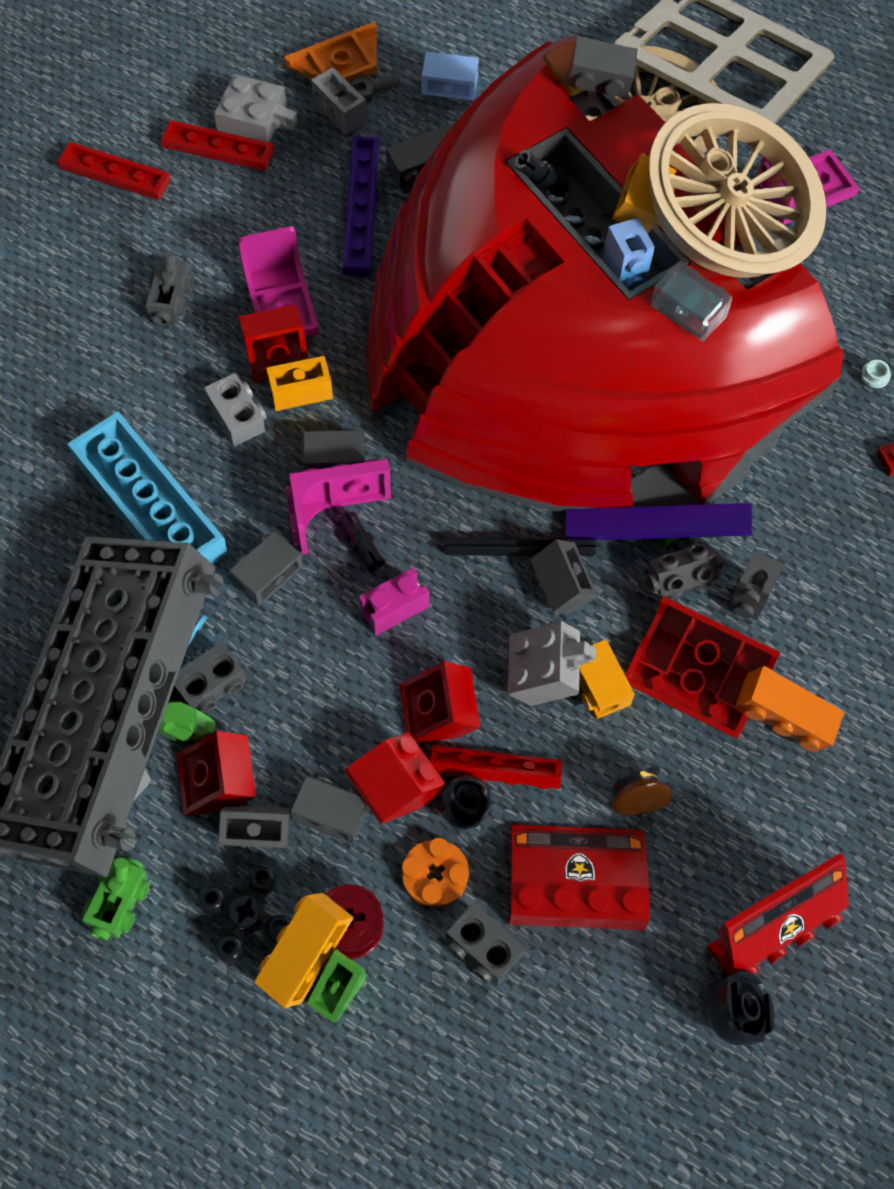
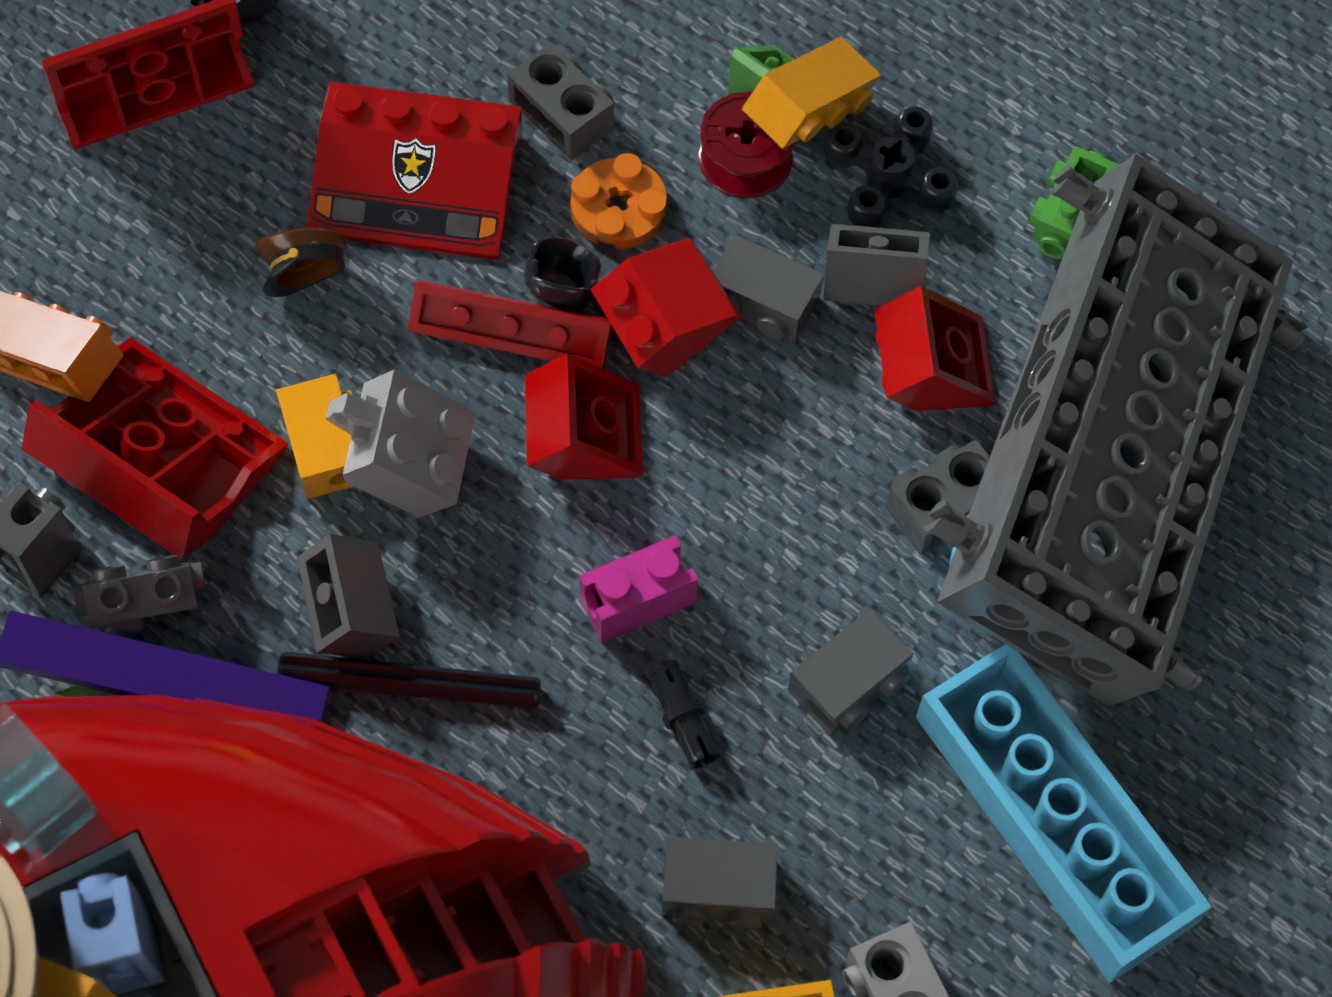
camera: 175 degrees left, 0 degrees up
(185, 723) = (966, 422): bright green rock -> none
(334, 487) = (713, 790): dark pink bracket -> none

